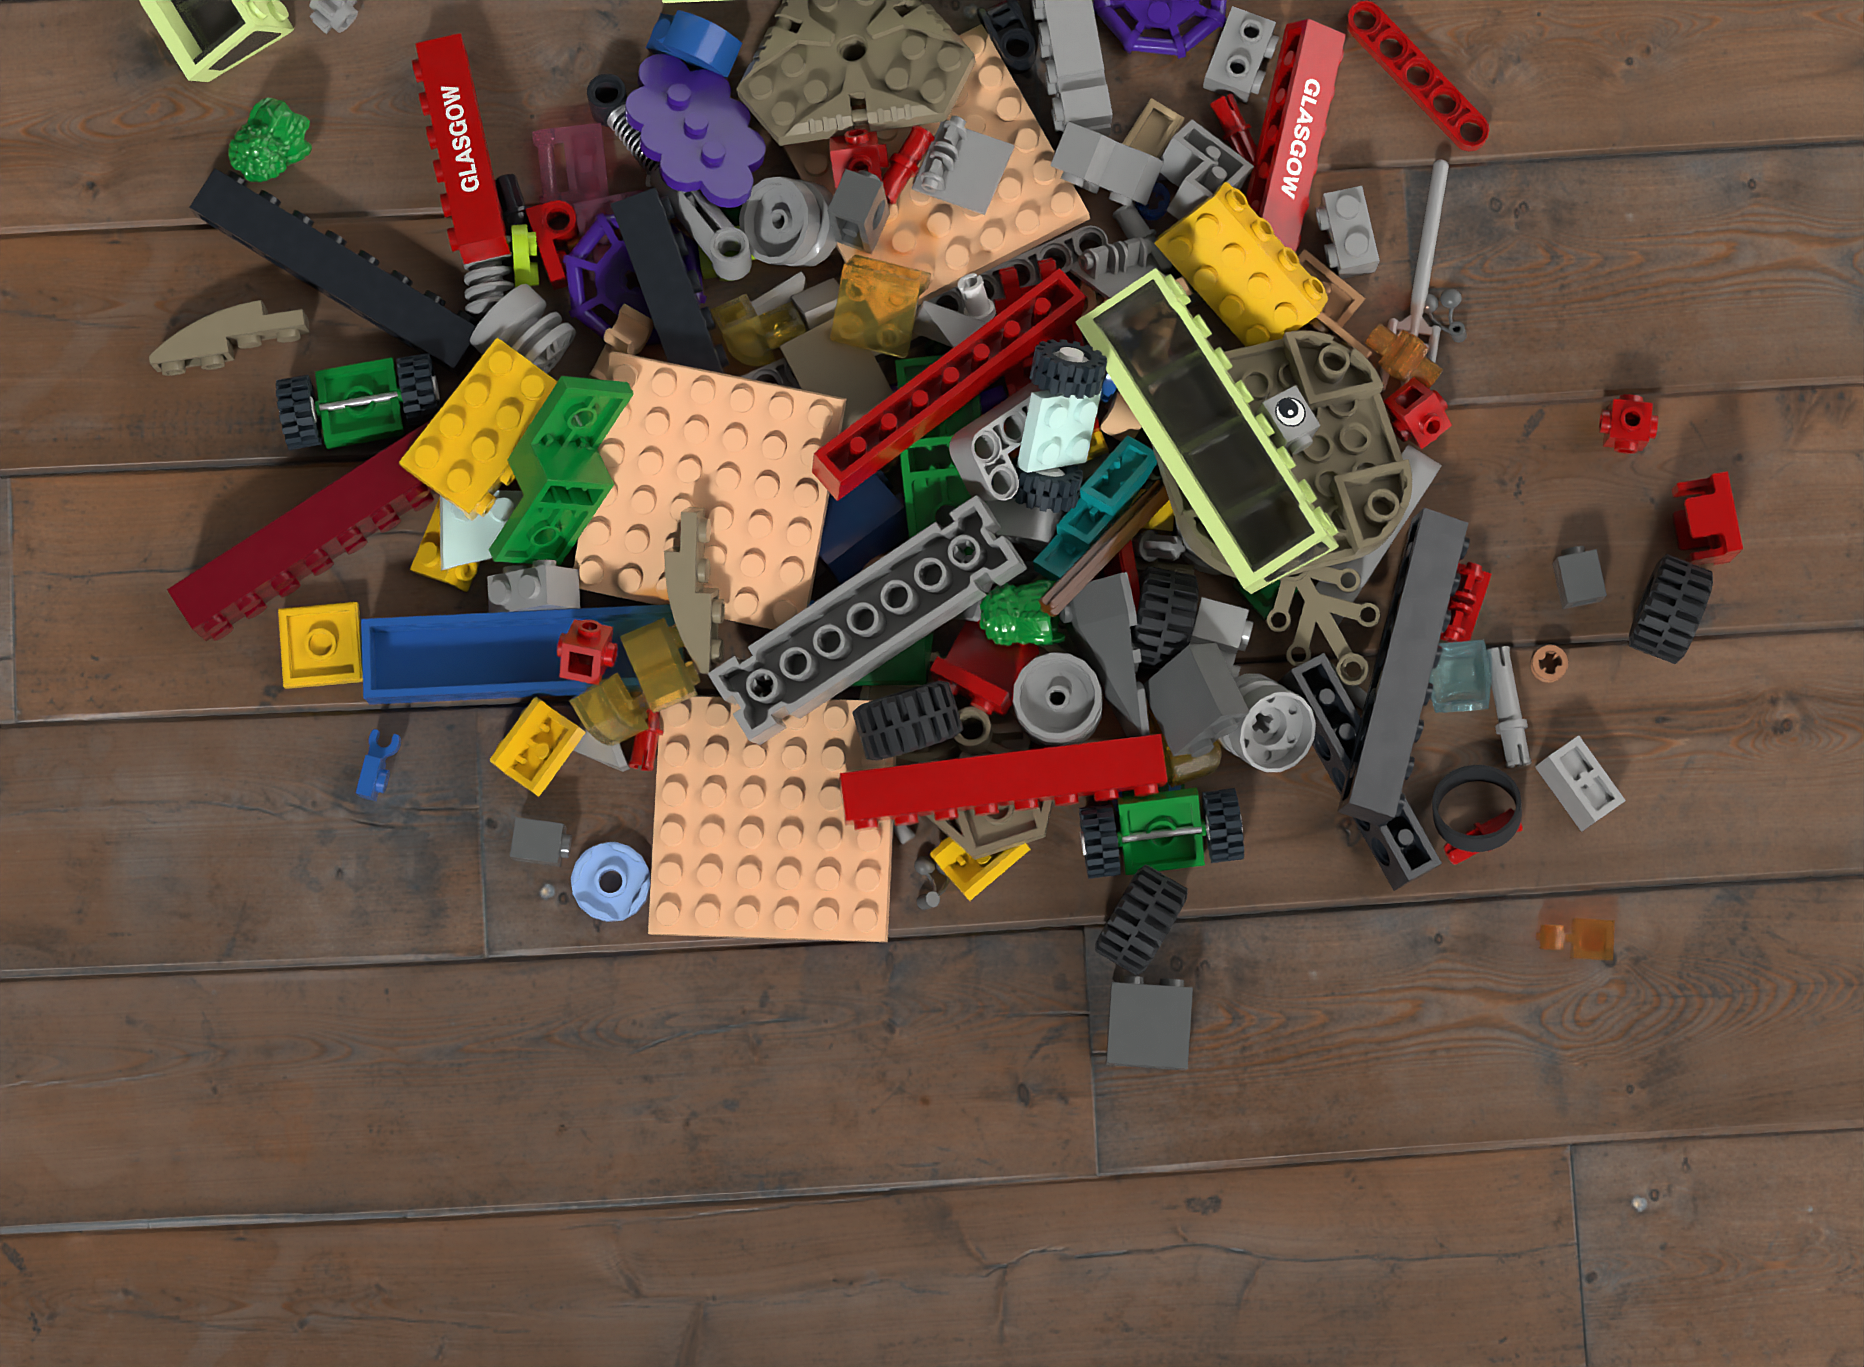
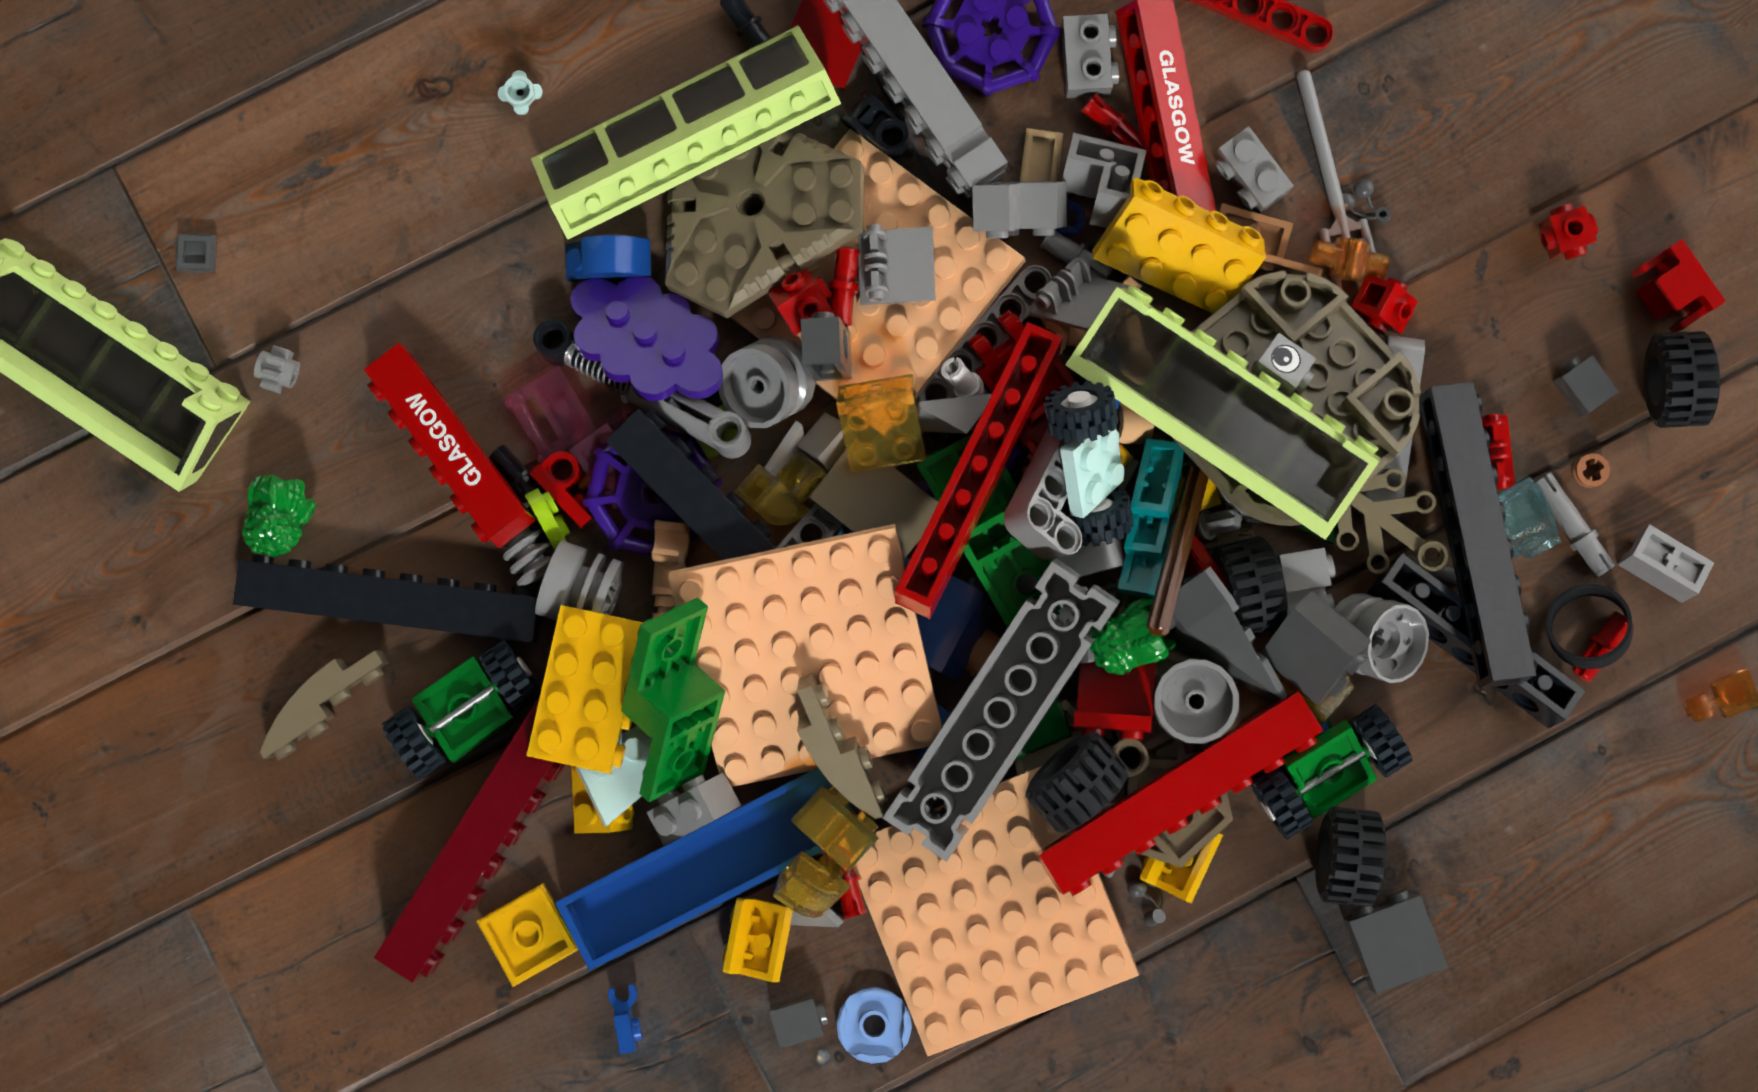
camera: 25 degrees left, 5 degrees up
(586, 651) = (767, 847): red brick -> none

